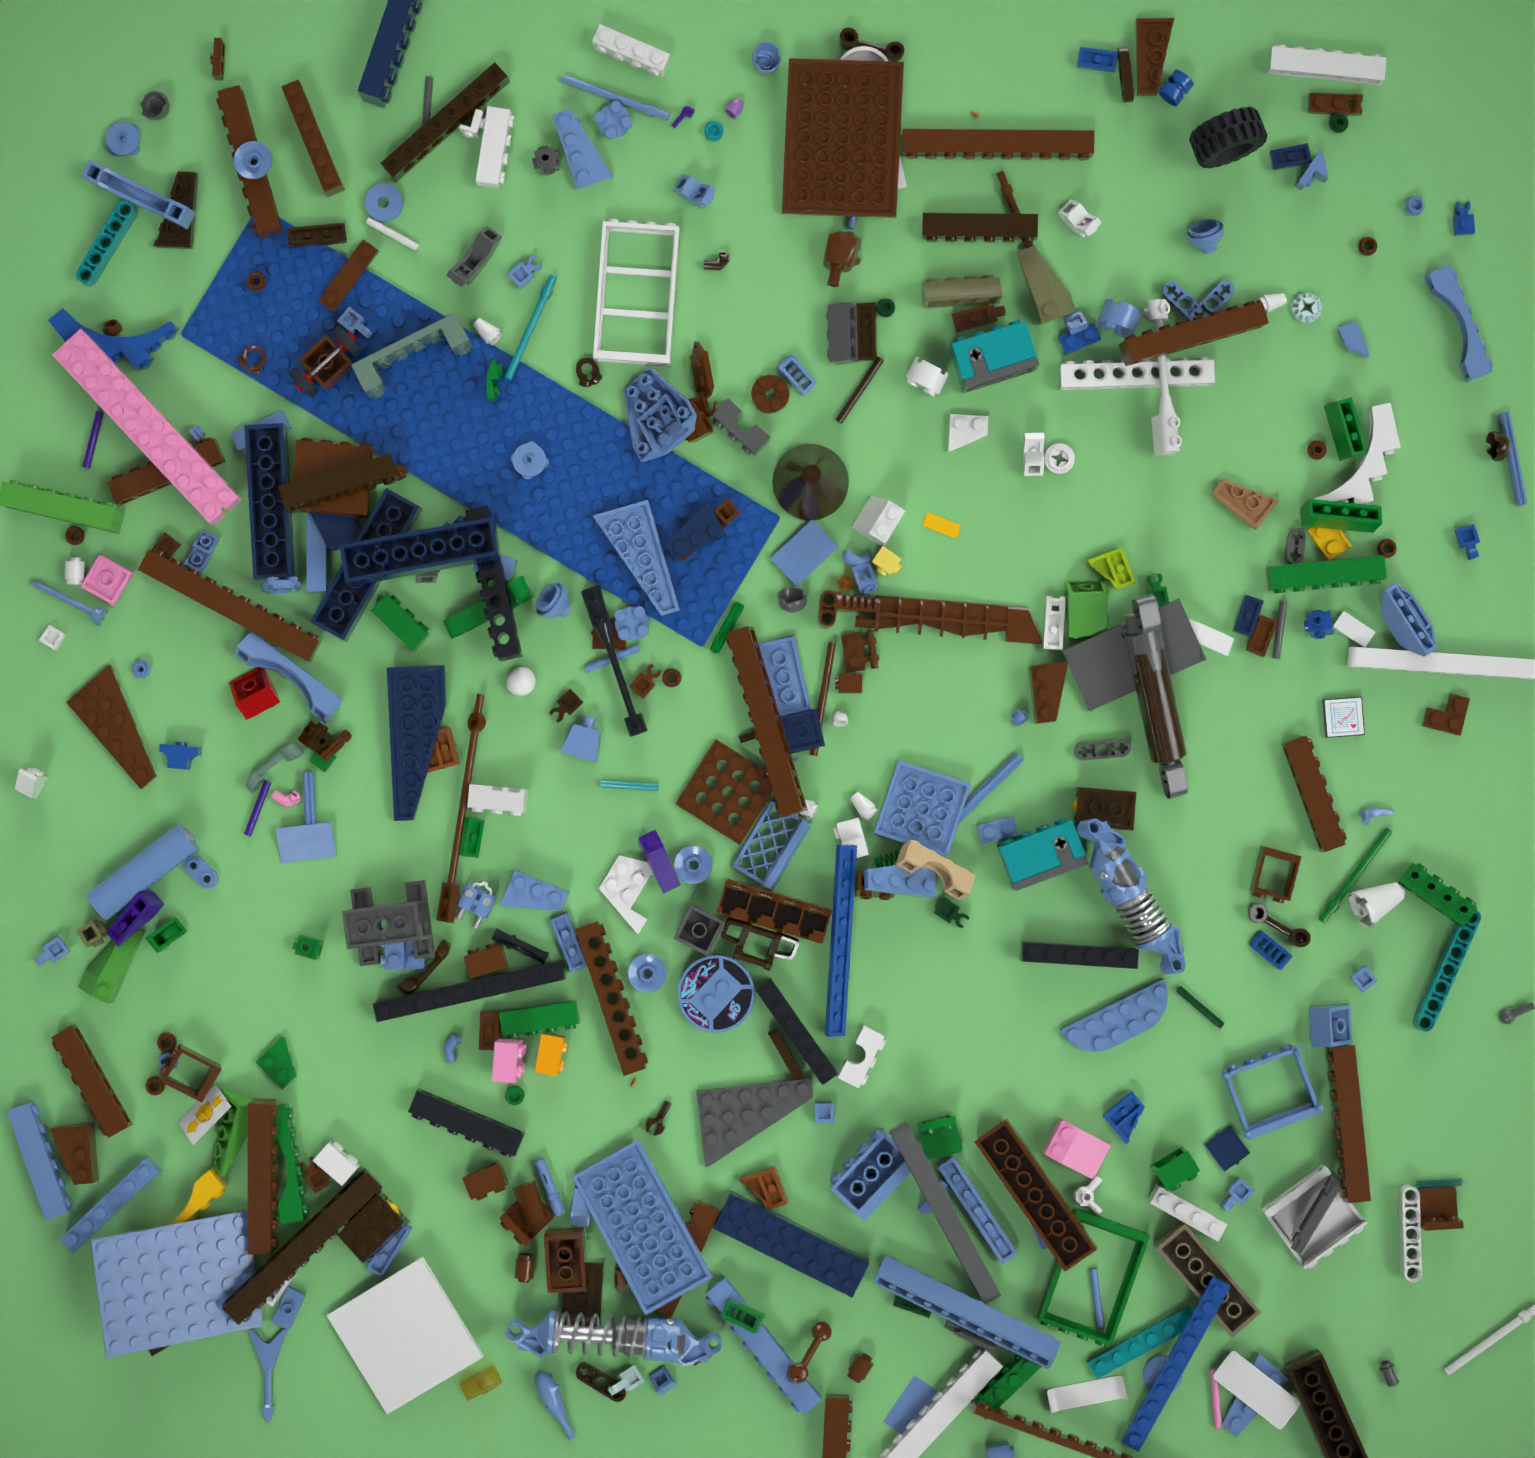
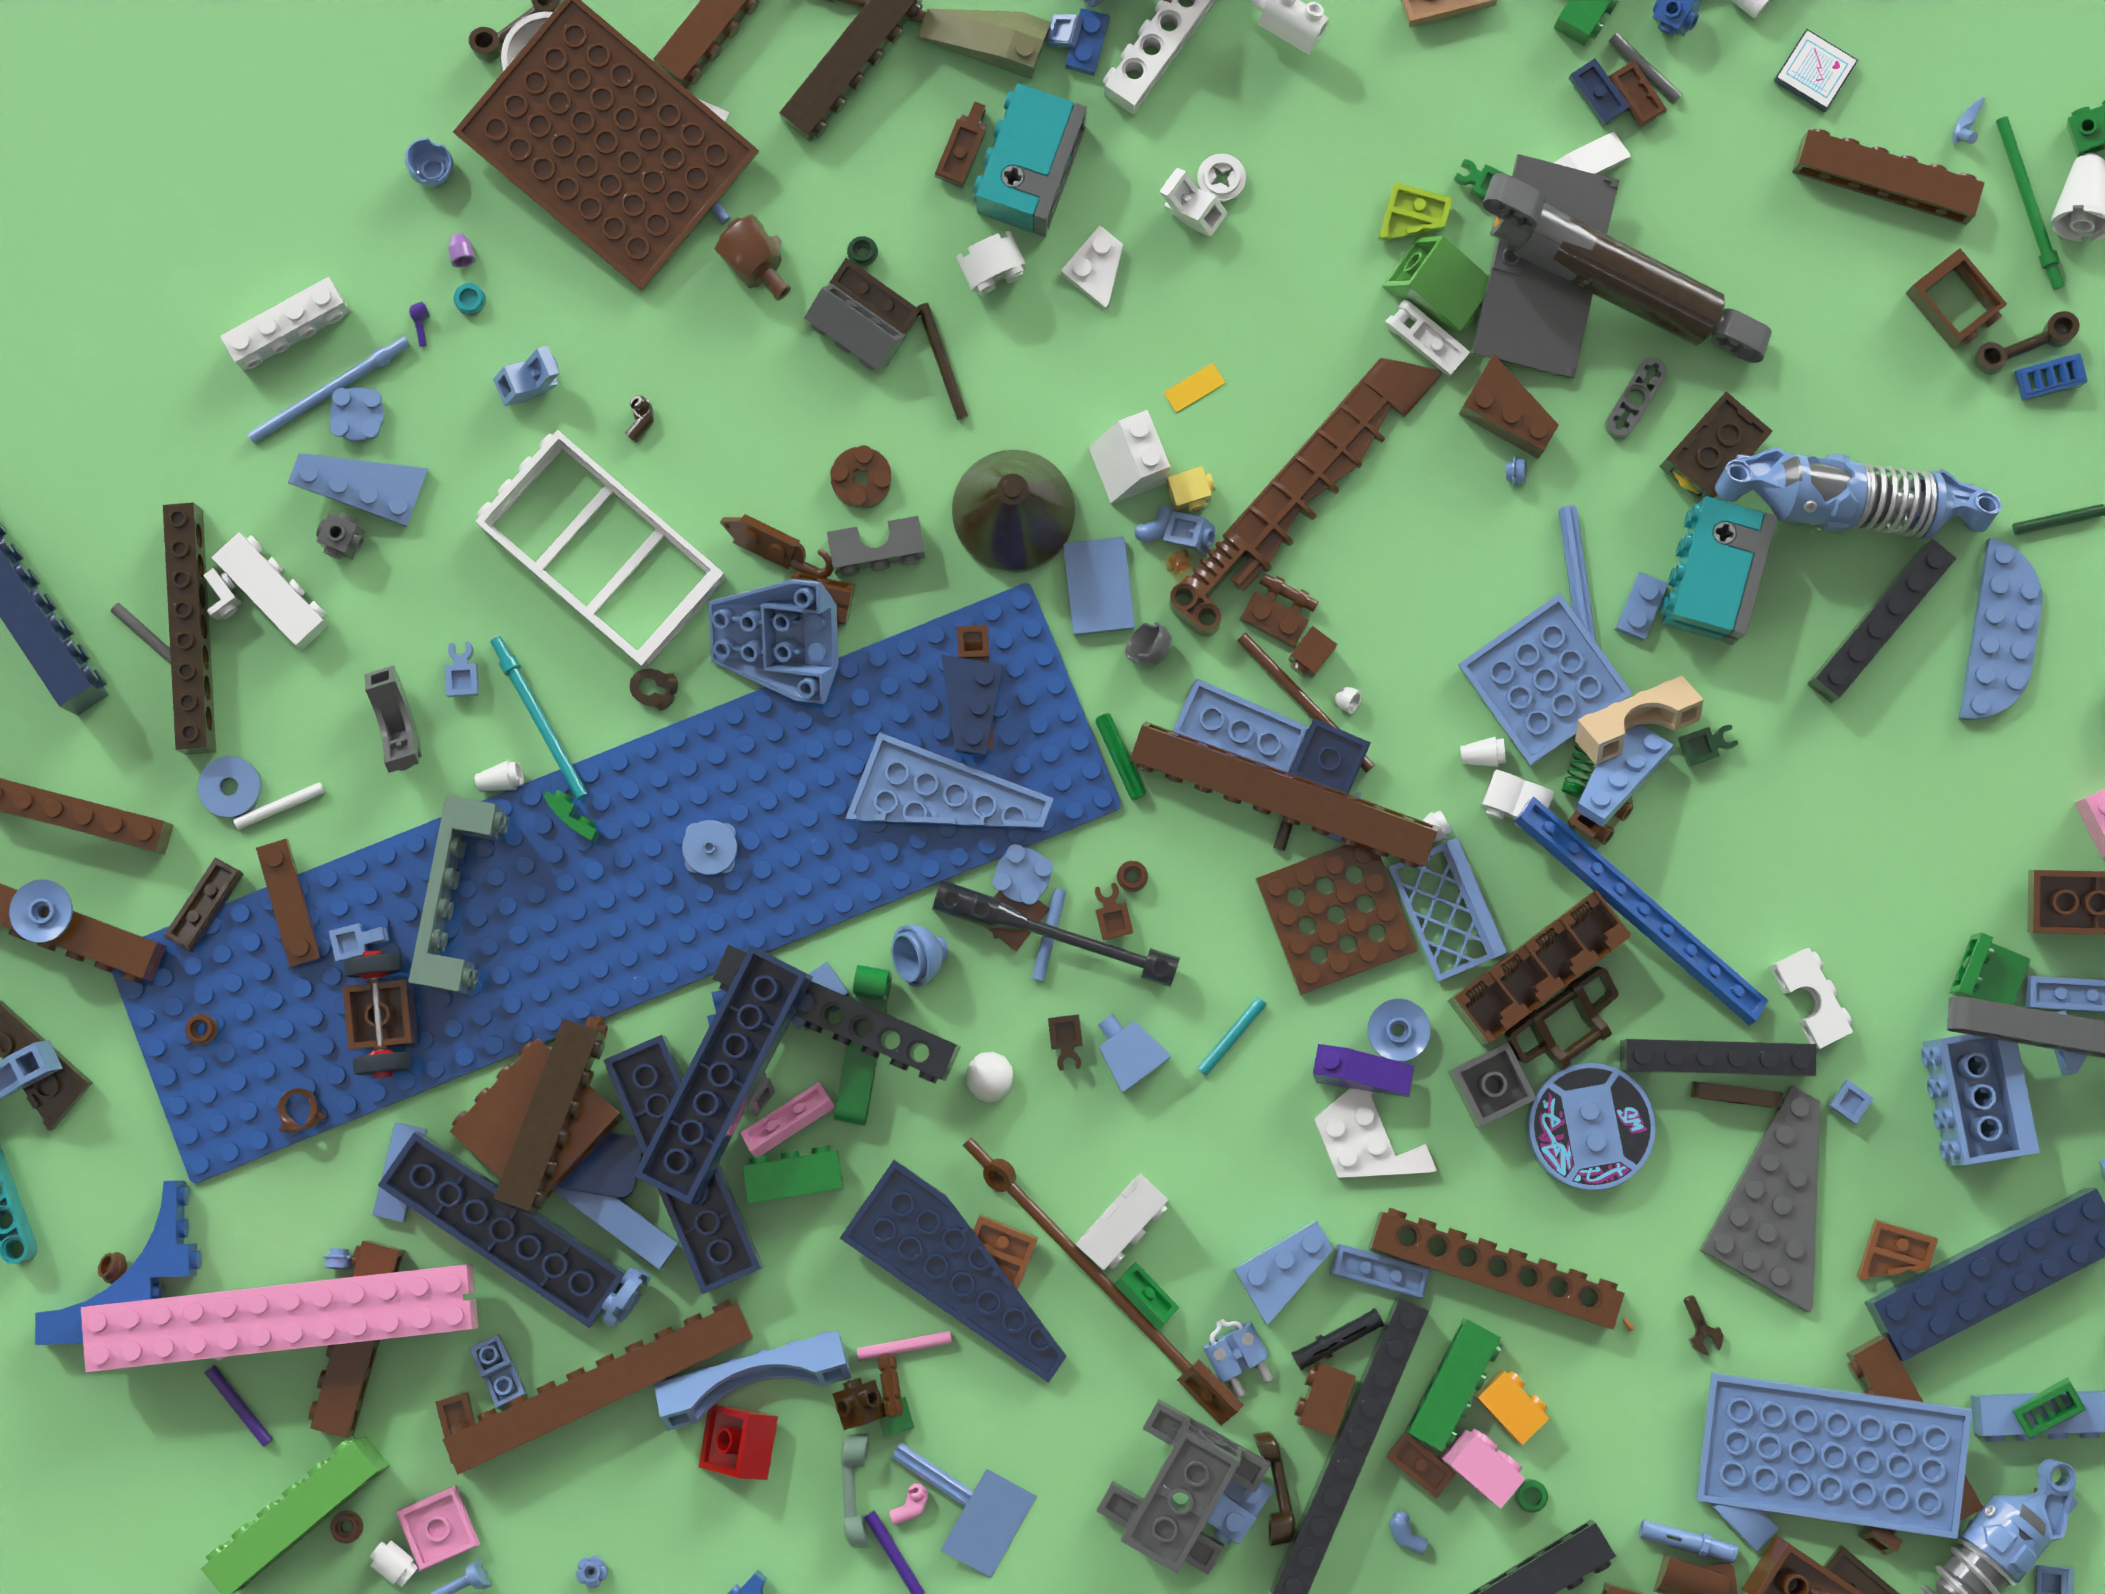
camera: 55 degrees left, 5 degrees down
(360, 738) = (904, 1345): none -> bright pink bar
(425, 599) = (787, 1120): none -> bright pink plate
(639, 980) = (1514, 1197): medium blue dish -> none
(801, 370) = (860, 415): medium blue slope -> none
(961, 292) = (917, 140): olive slope -> none

